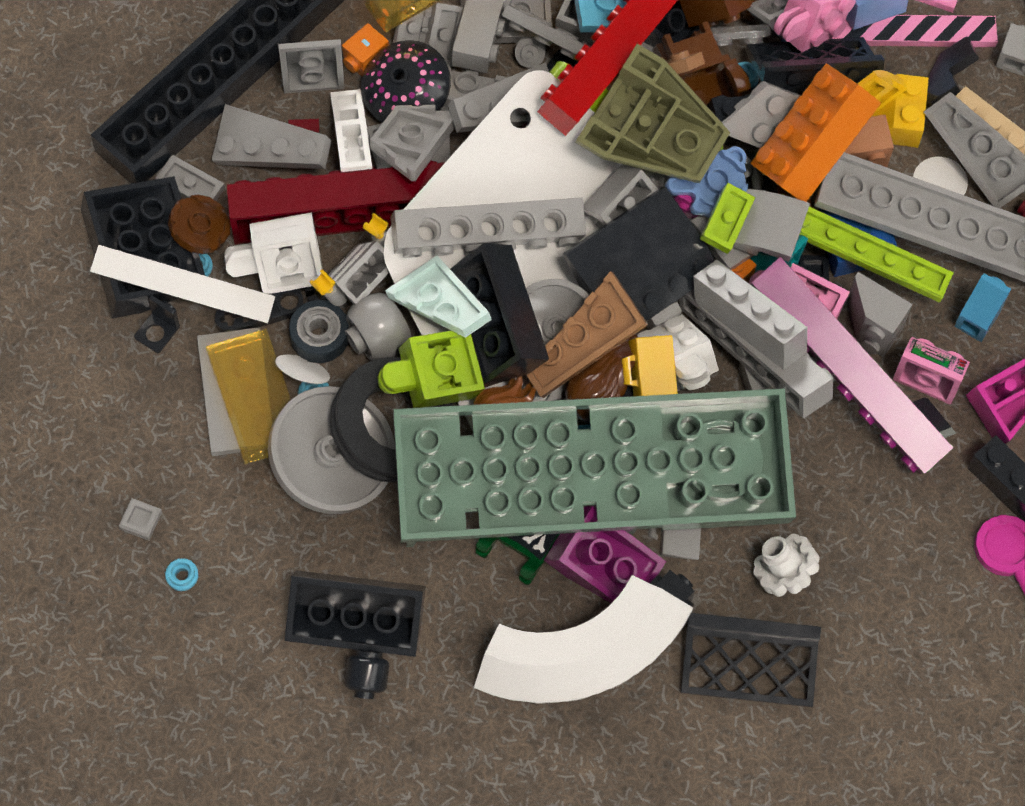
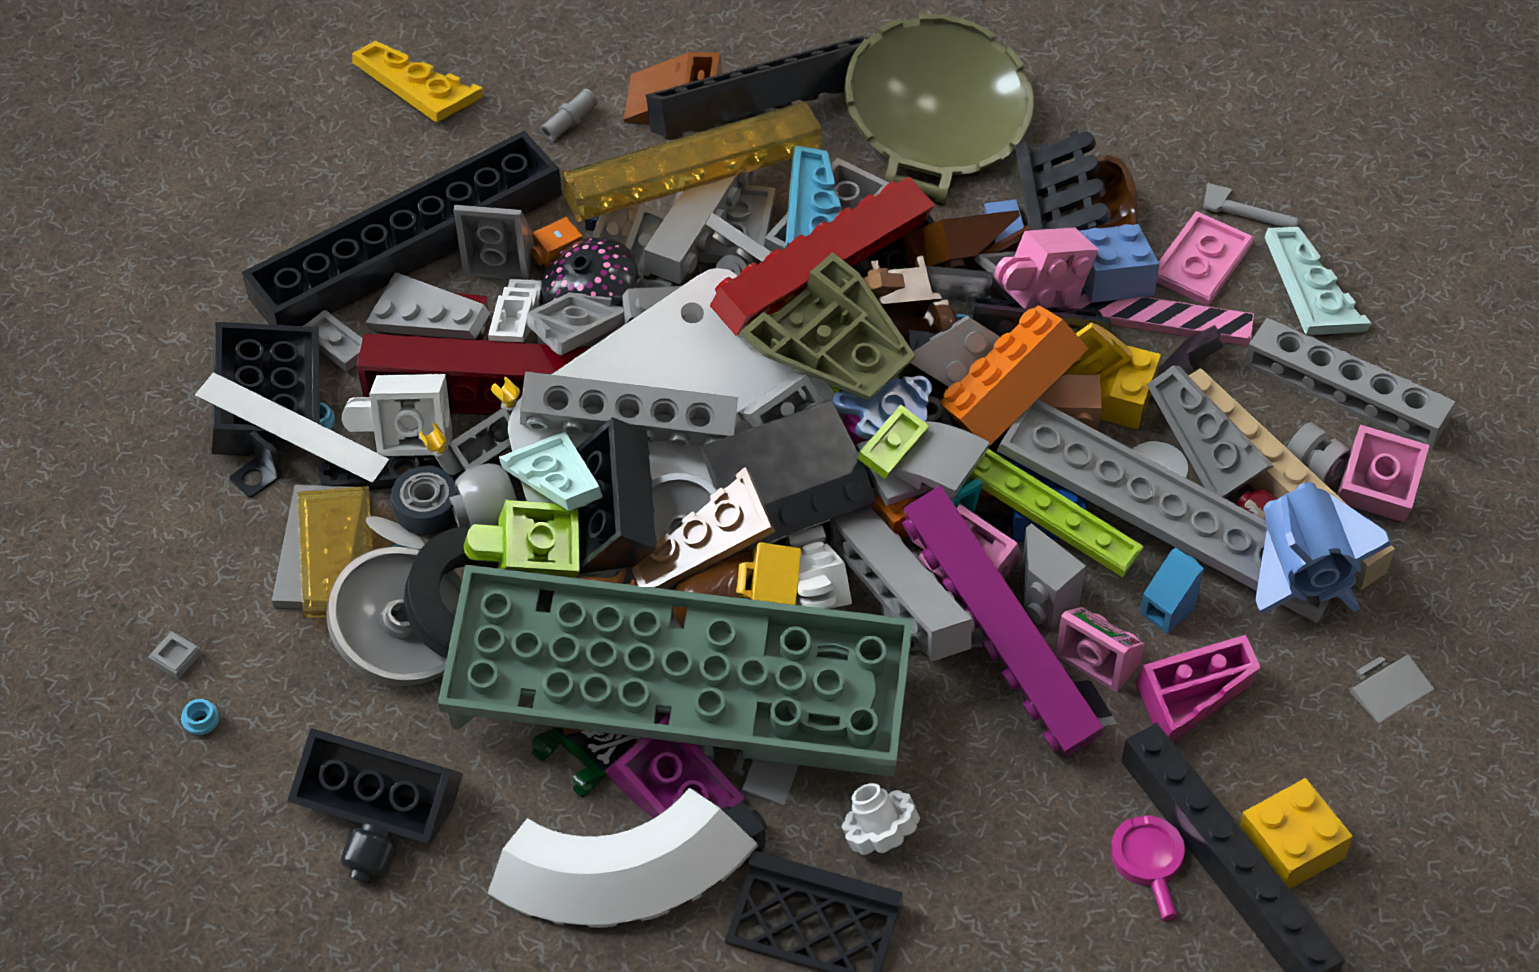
camera: 15 degrees right, 15 degrees down
(199, 224) = (328, 375): reddish brown tile -> none
(750, 314) = (896, 543): light grey brick -> none

